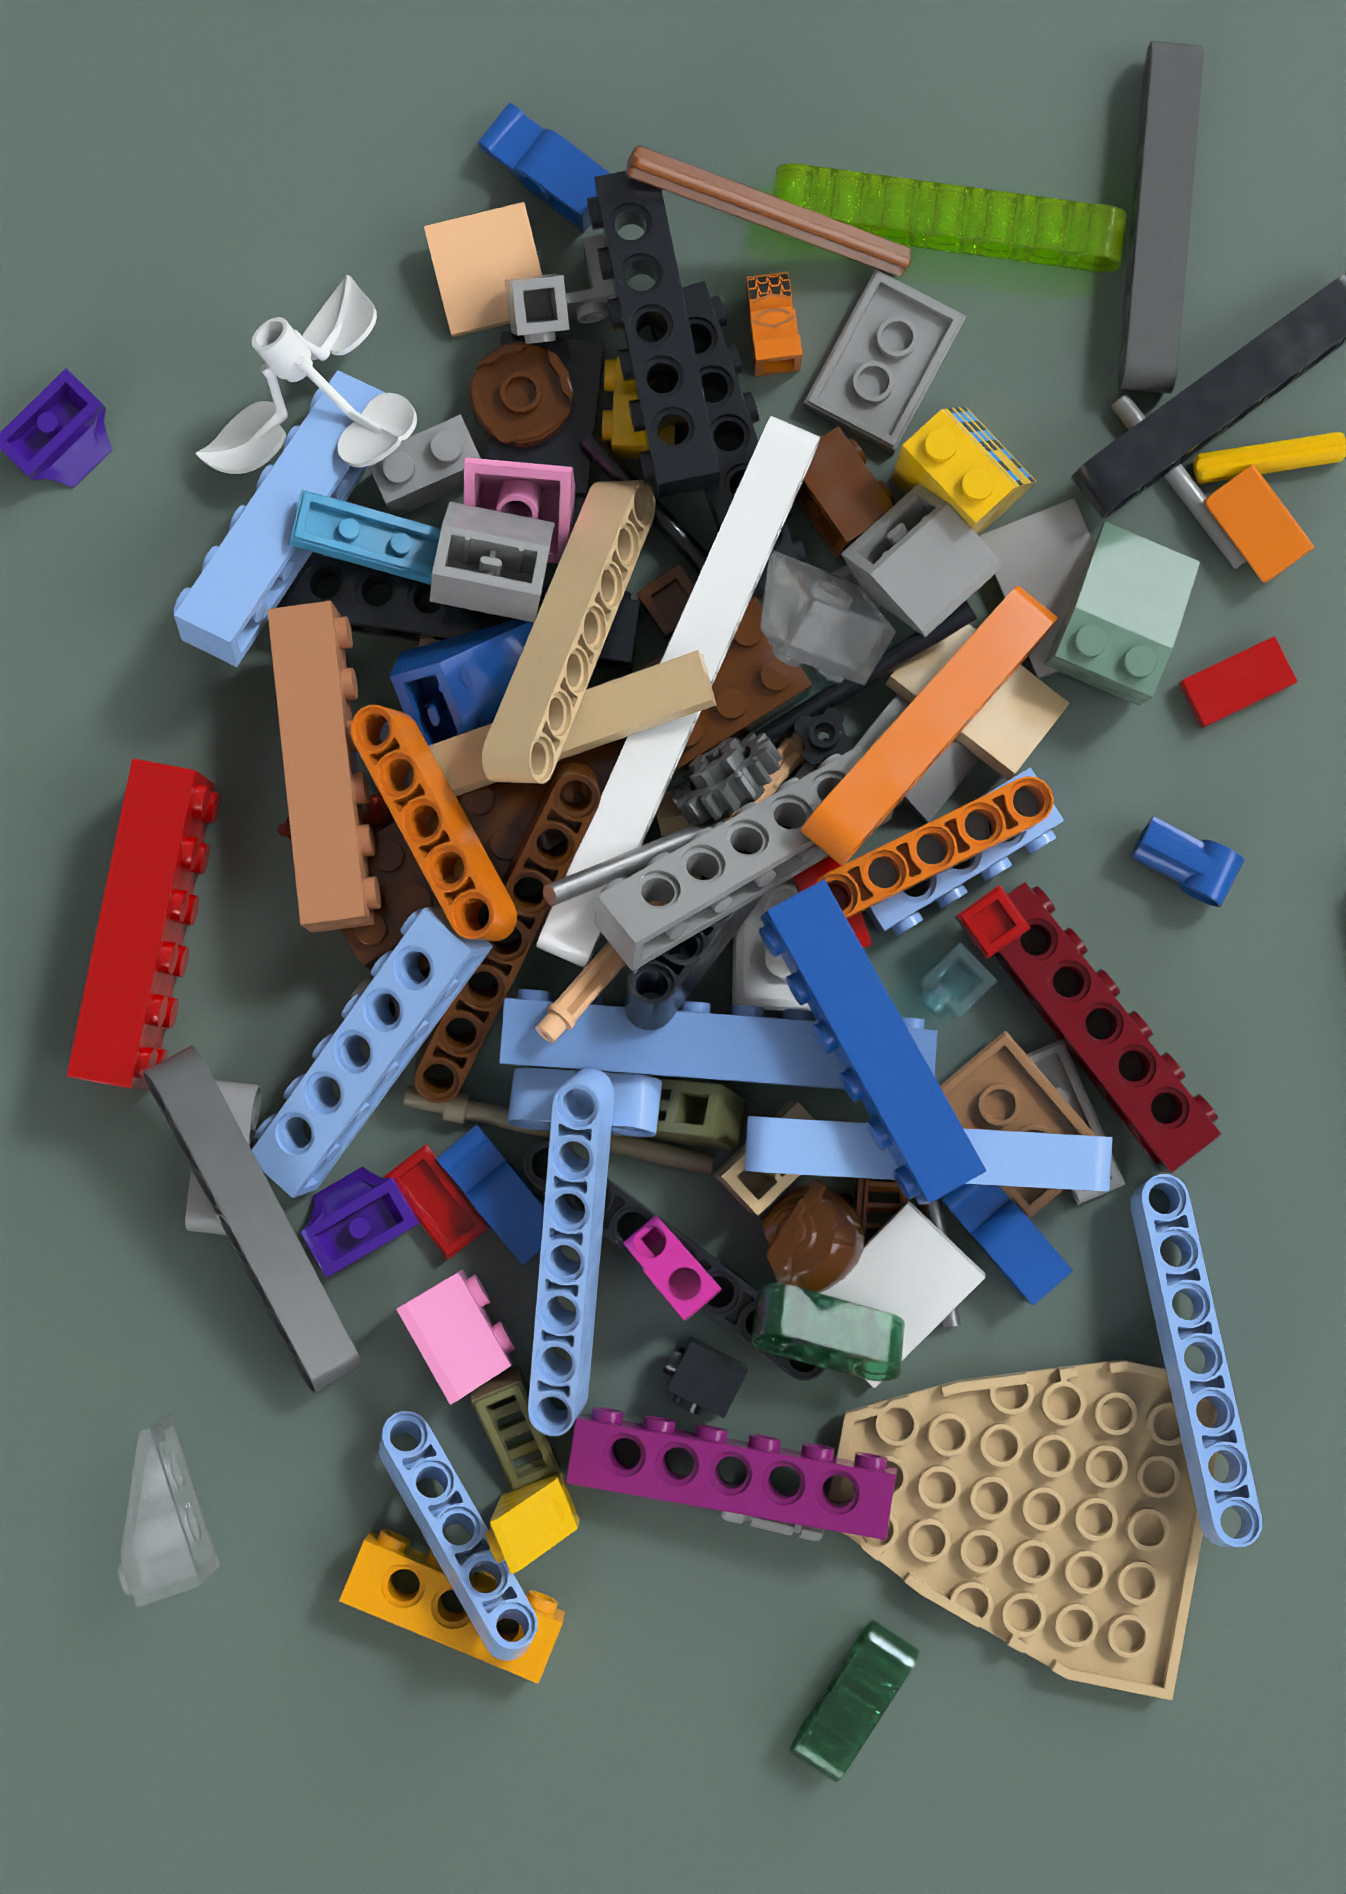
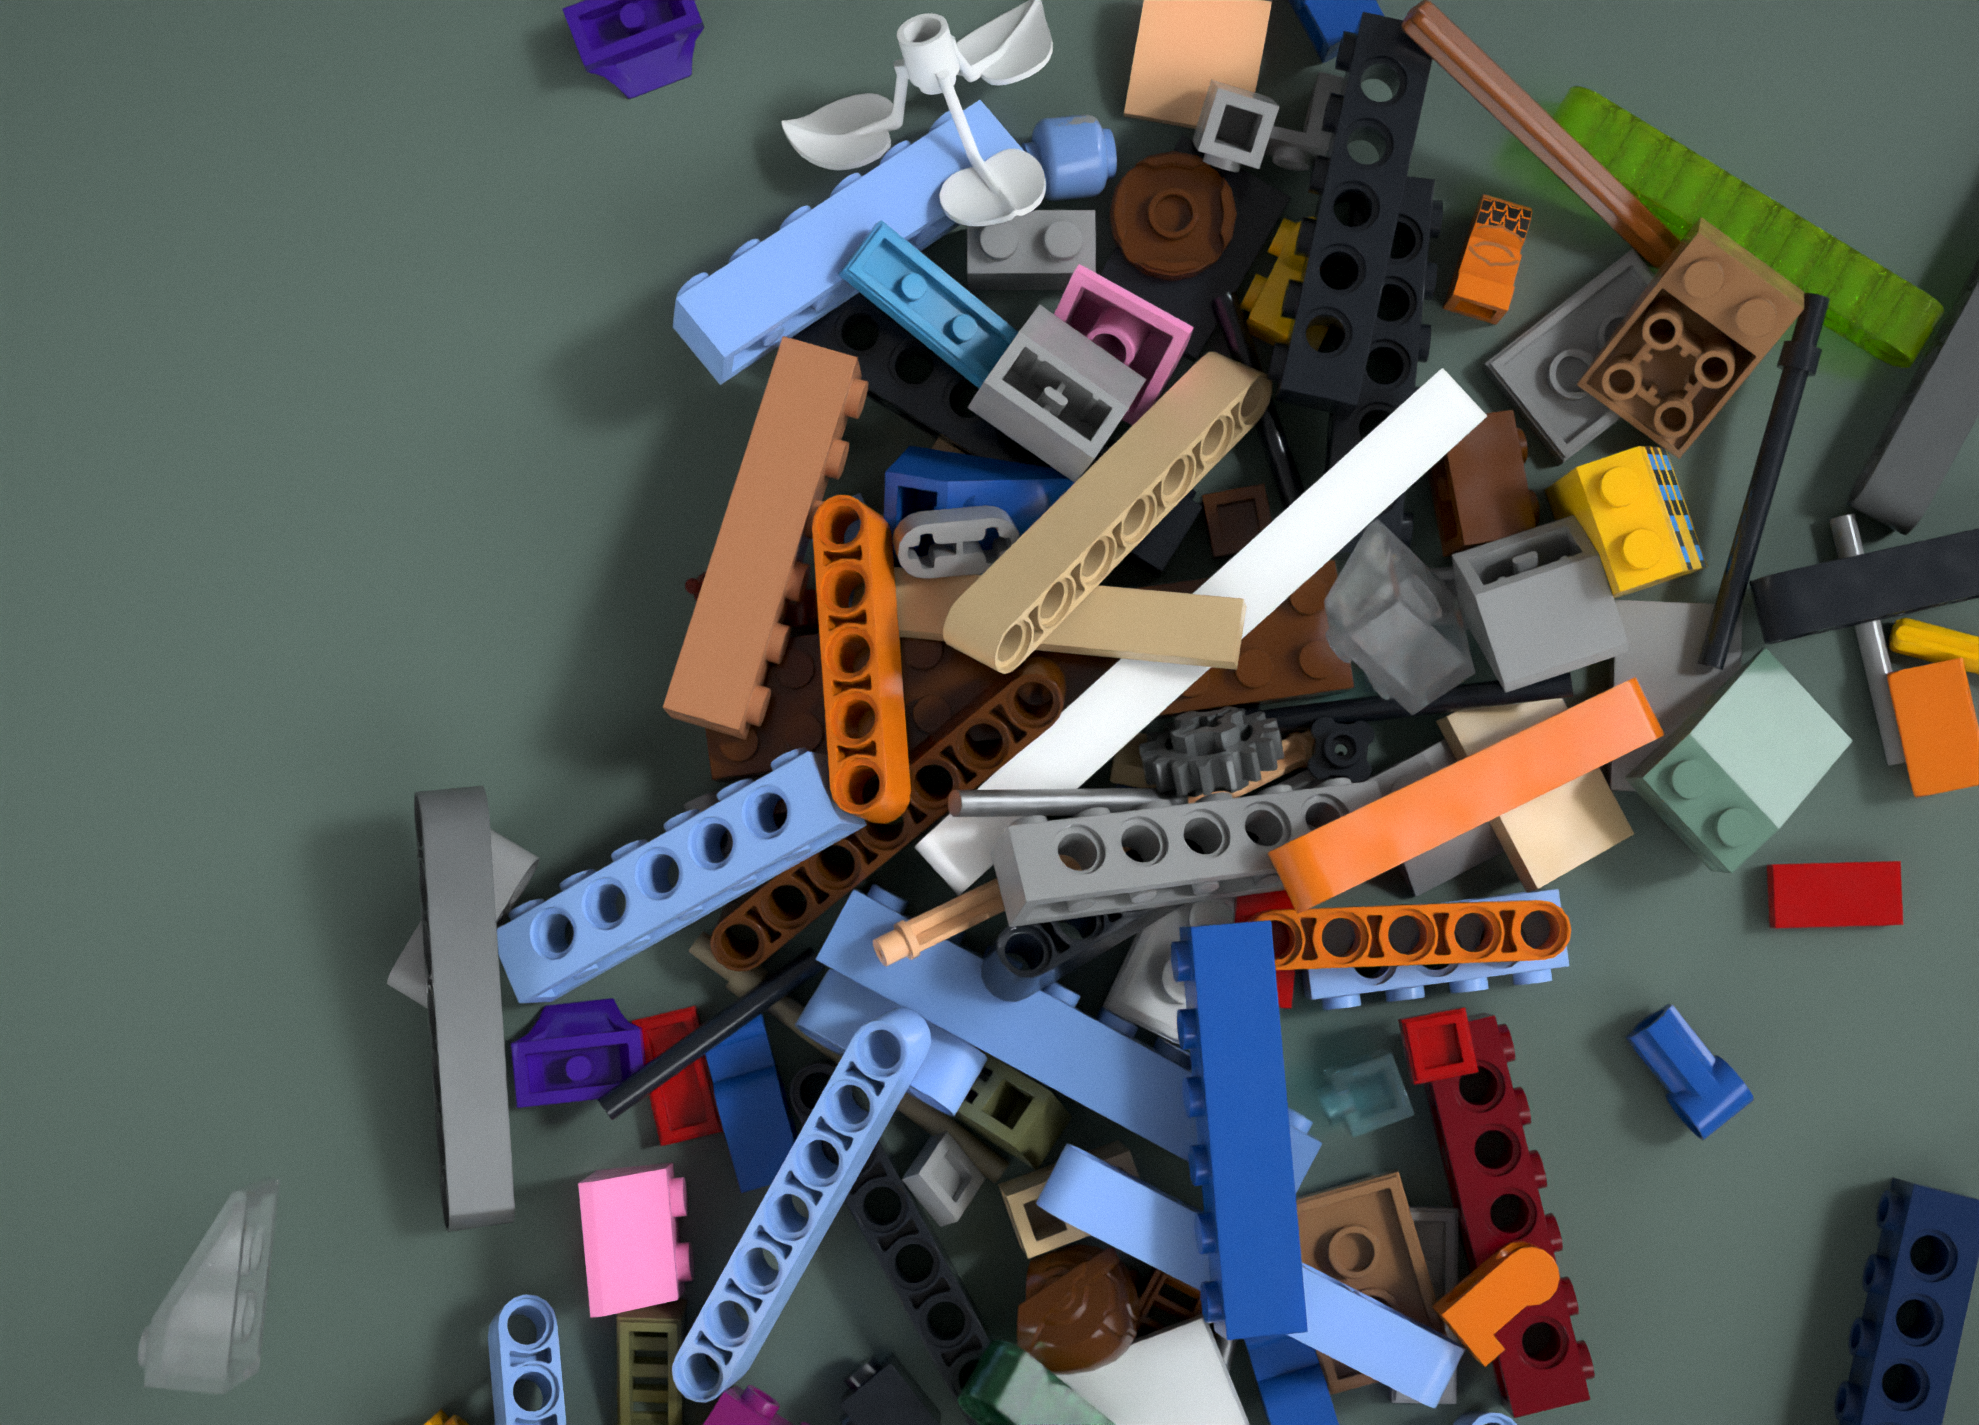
camera: 25 degrees right, 0 degrees up
(143, 924) = (488, 626): red brick -> none
(427, 381) = (1073, 155): none -> medium blue head
(447, 1157) = (710, 1034): none -> black bar
(460, 695) = (955, 539): none -> light grey beam
(670, 1188) = (943, 1179): none -> light grey plate
(672, 1268) = (905, 1274): dark pink leg -> none
(948, 315) = (1692, 338): none -> medium nougat slope
(1034, 298) = (1797, 361): none -> black bar
(1115, 1087) = (1495, 1294): none -> orange leg

